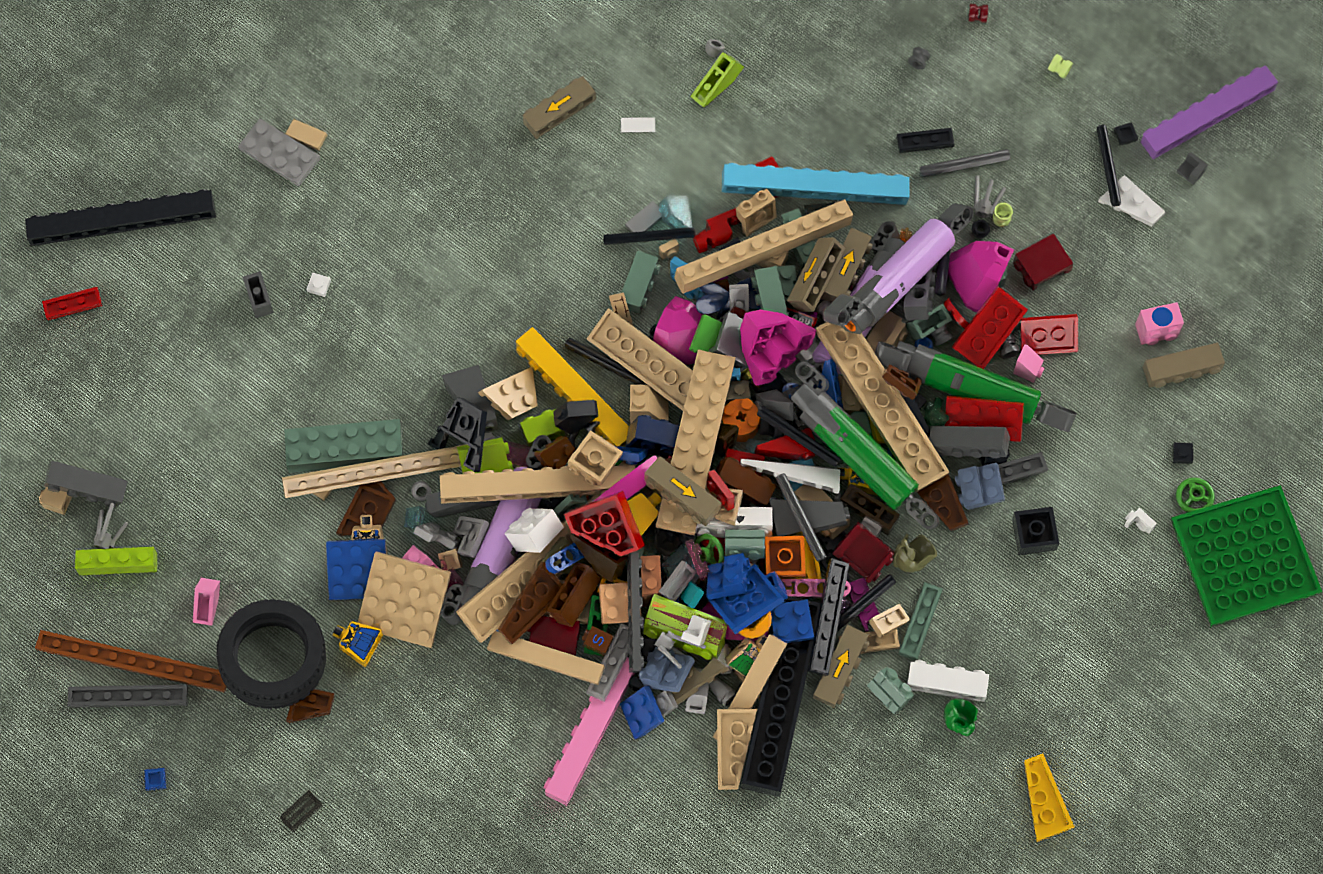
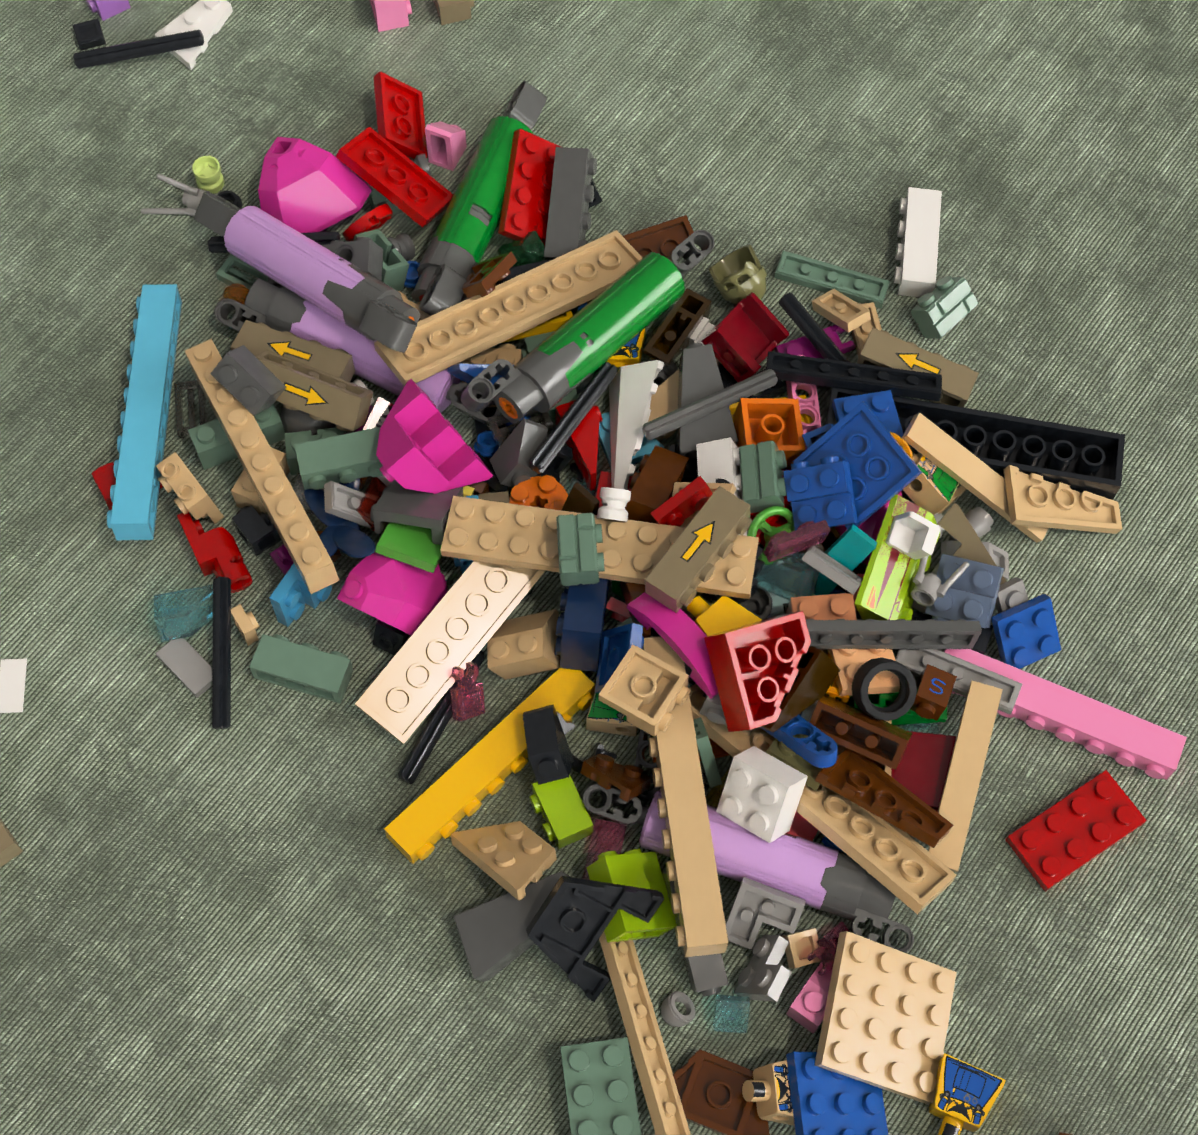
camera: 95 degrees left, 5 degrees down
(514, 732) = (1075, 830): none -> red plate
(610, 607) = (905, 696): none -> black tyre
(615, 375) = (469, 695): none -> clear pink plate
(620, 306) = (347, 691): tan sticker -> none
(687, 423) = (578, 549): none -> sand green brick
(720, 448) = (614, 504): none -> white wheel
(816, 235) = (248, 380): none -> dark grey brick
(925, 140) = (77, 275): black tile -> none
(960, 716) = (969, 226): green hair -> none
(966, 162) = (120, 225): dark grey axle -> none
(980, 486) = (630, 200): sand blue plate -> none
(1022, 468) = (608, 175): dark grey plate -> none
(1035, 530) = (693, 135): black brick -> none
(1042, 261) = (284, 116): dark red panel -> none
(1046, 803) = (1067, 133): yellow wing -> none
(1142, 521) = (667, 23): white bracket -> none

